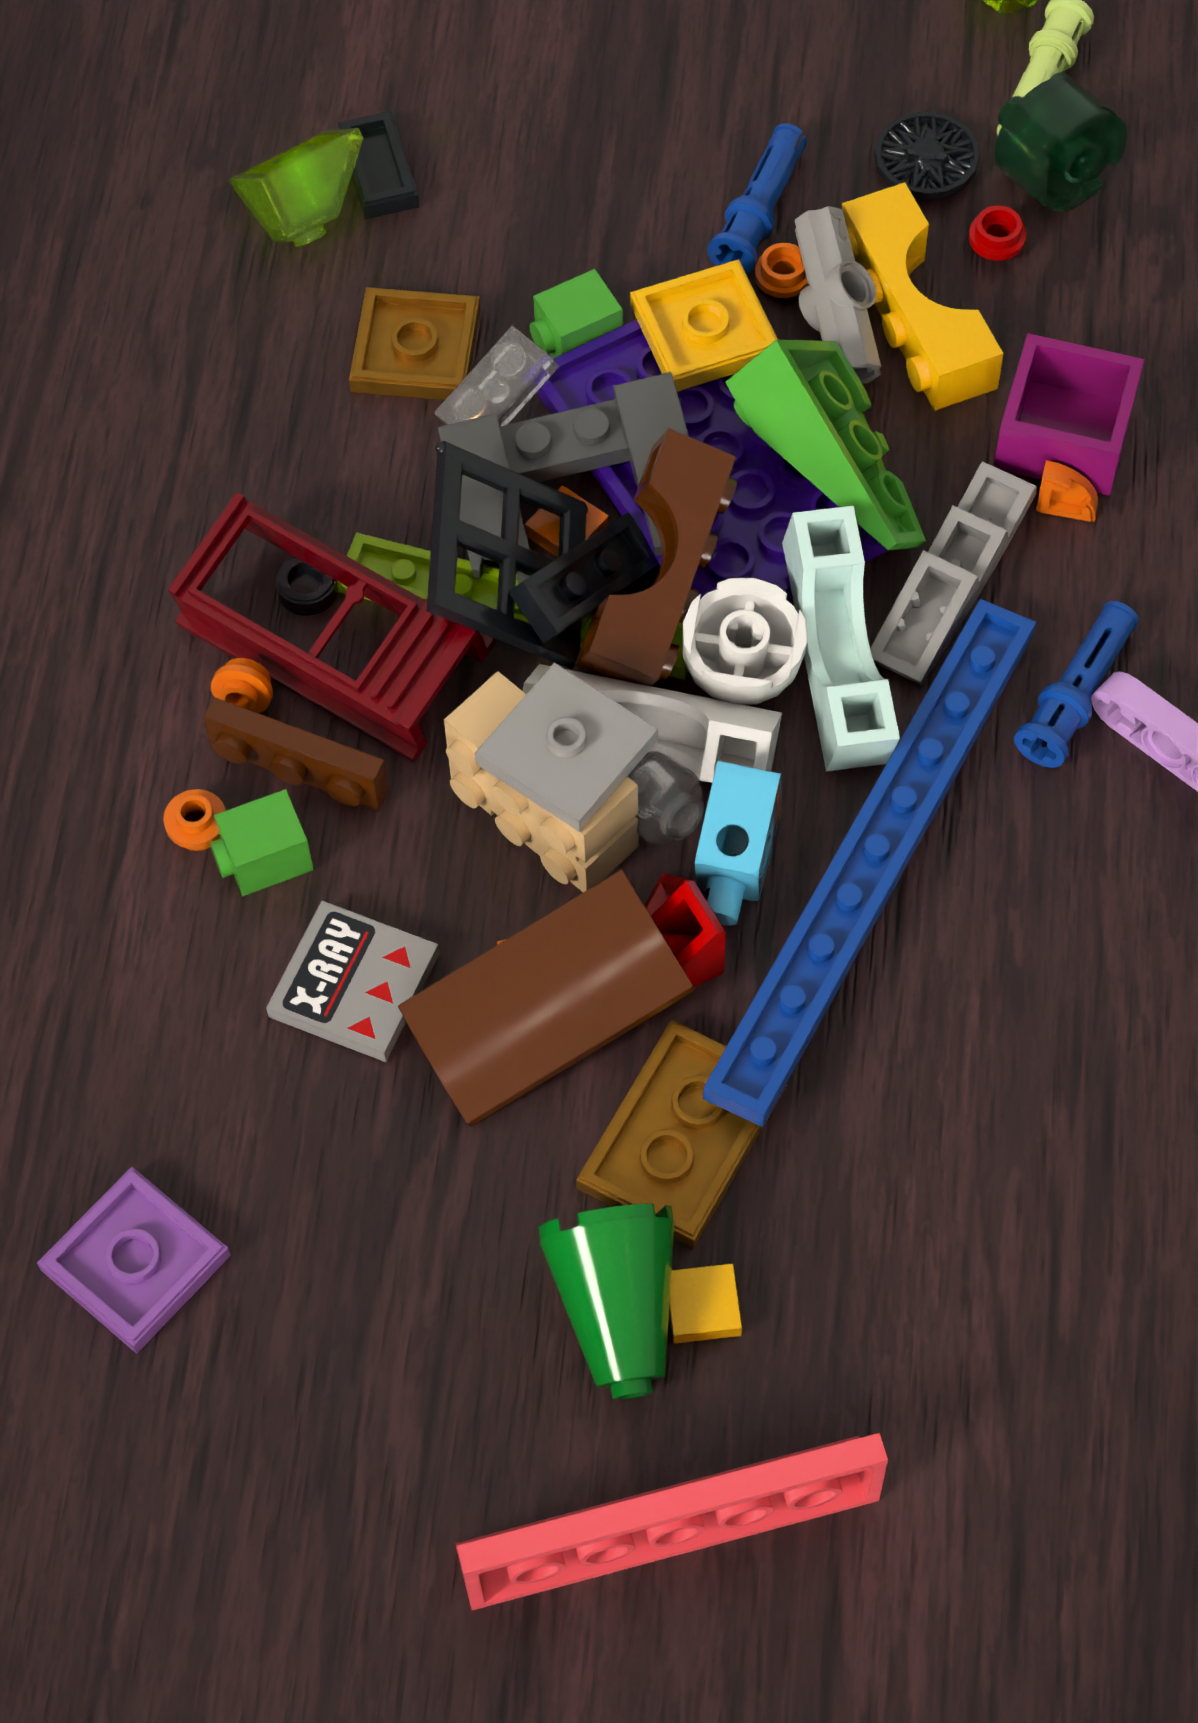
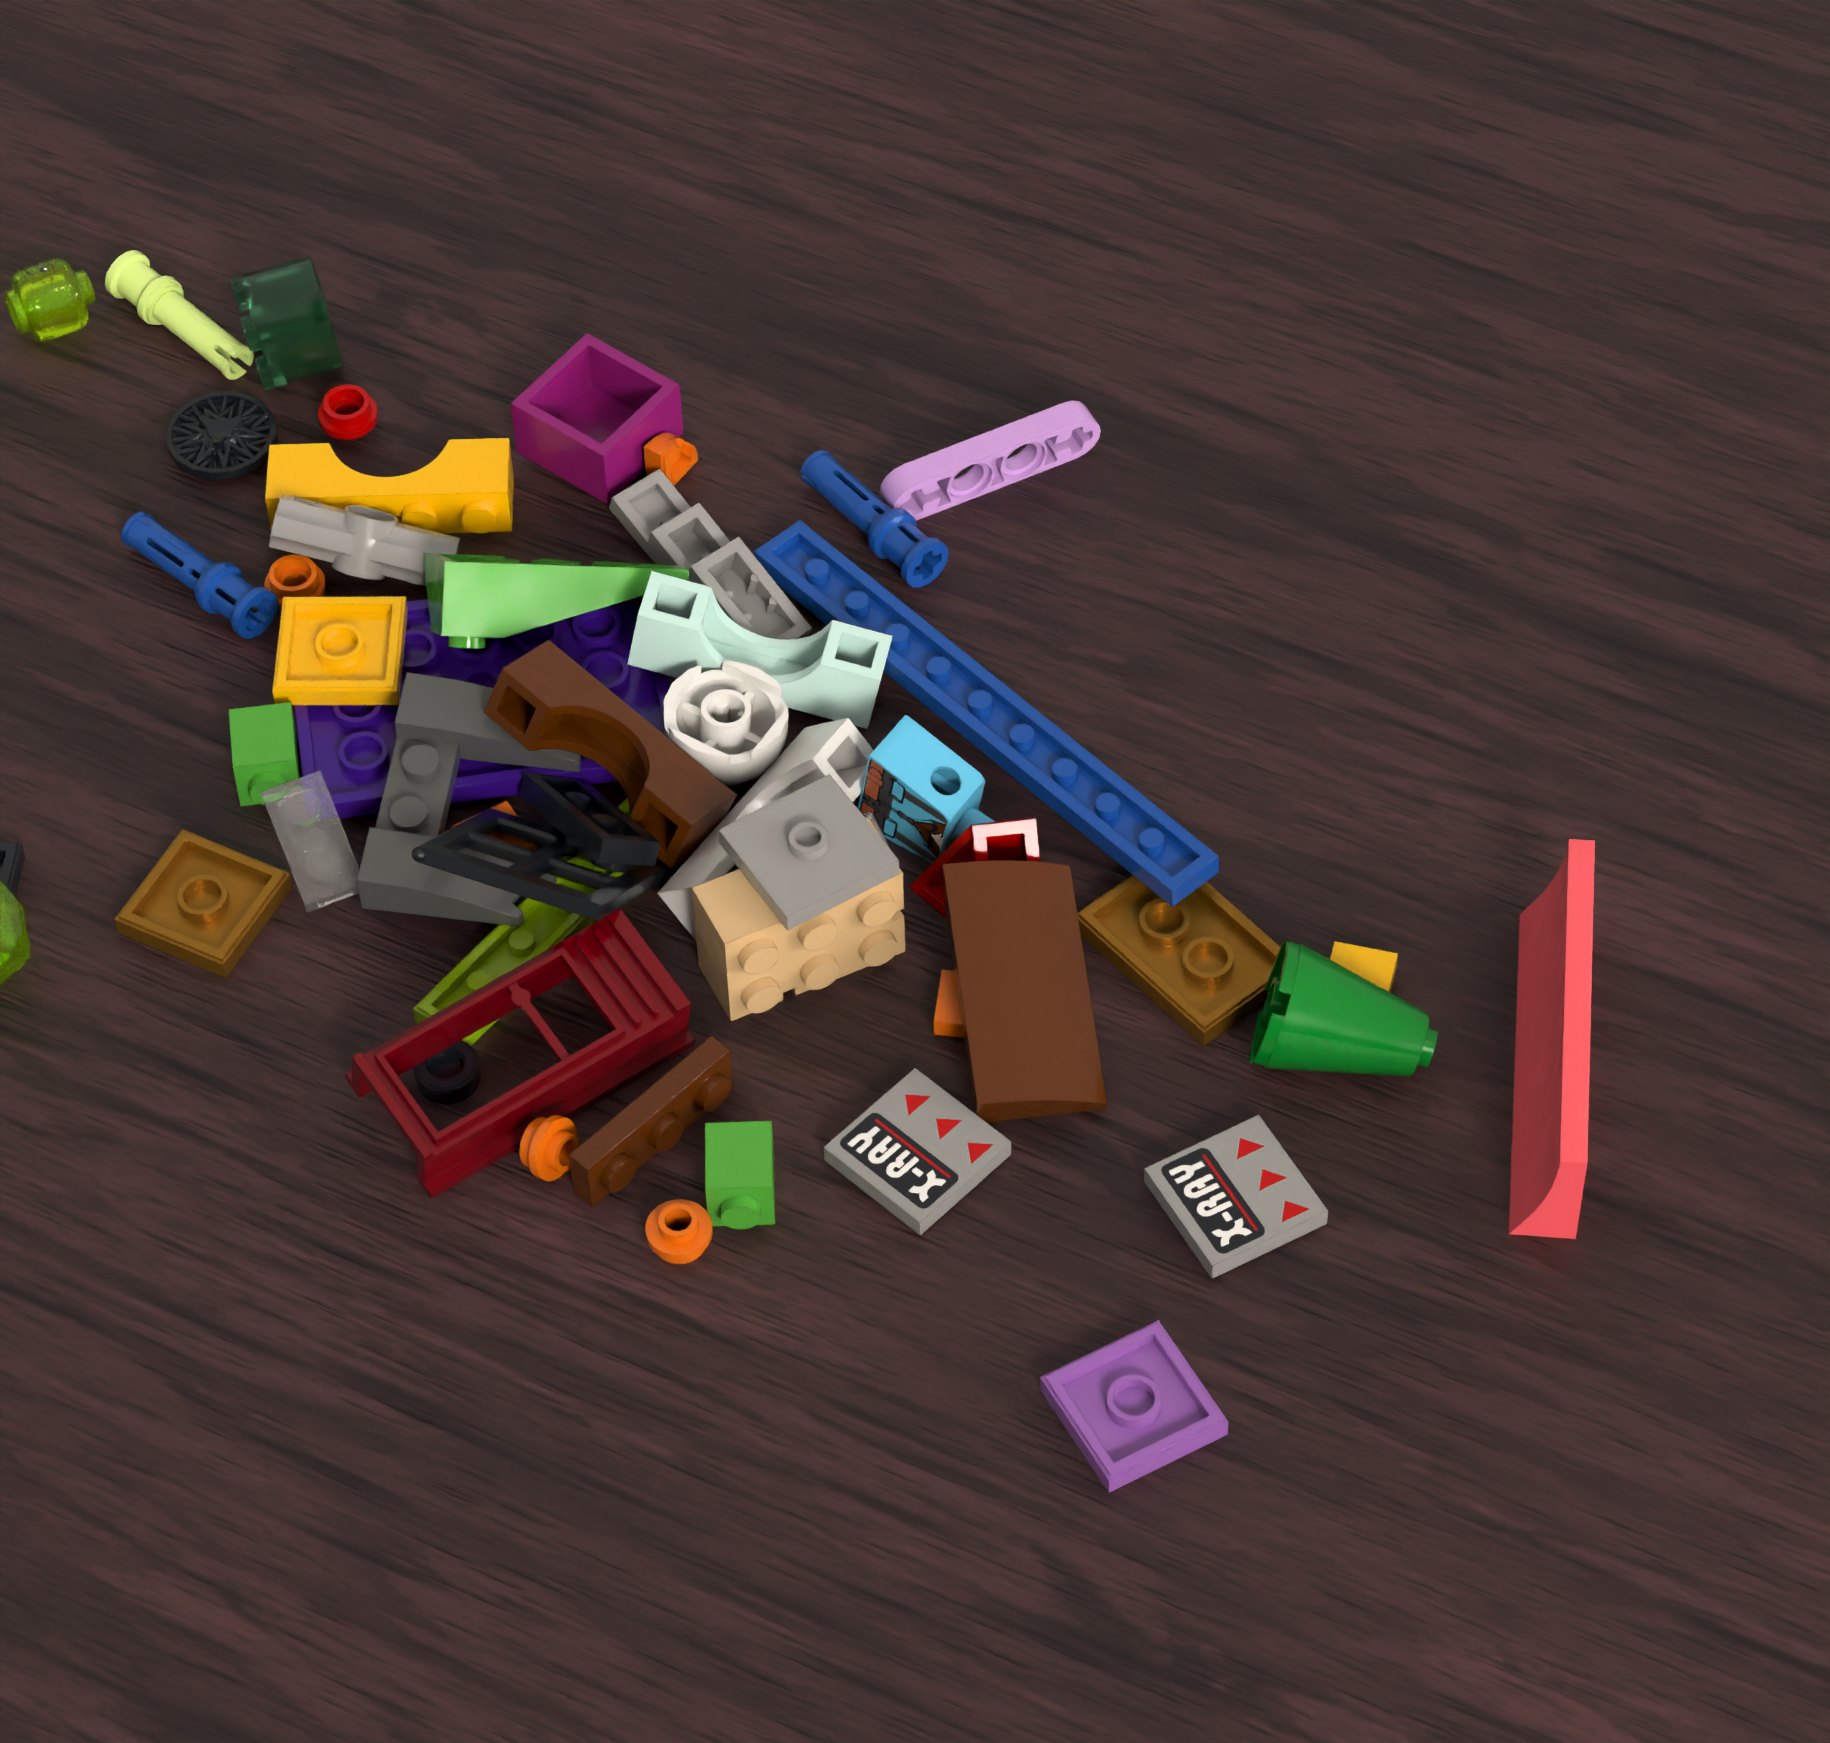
camera: 70 degrees left, 10 degrees down
(399, 1272) = (1235, 1196): none -> light grey tile

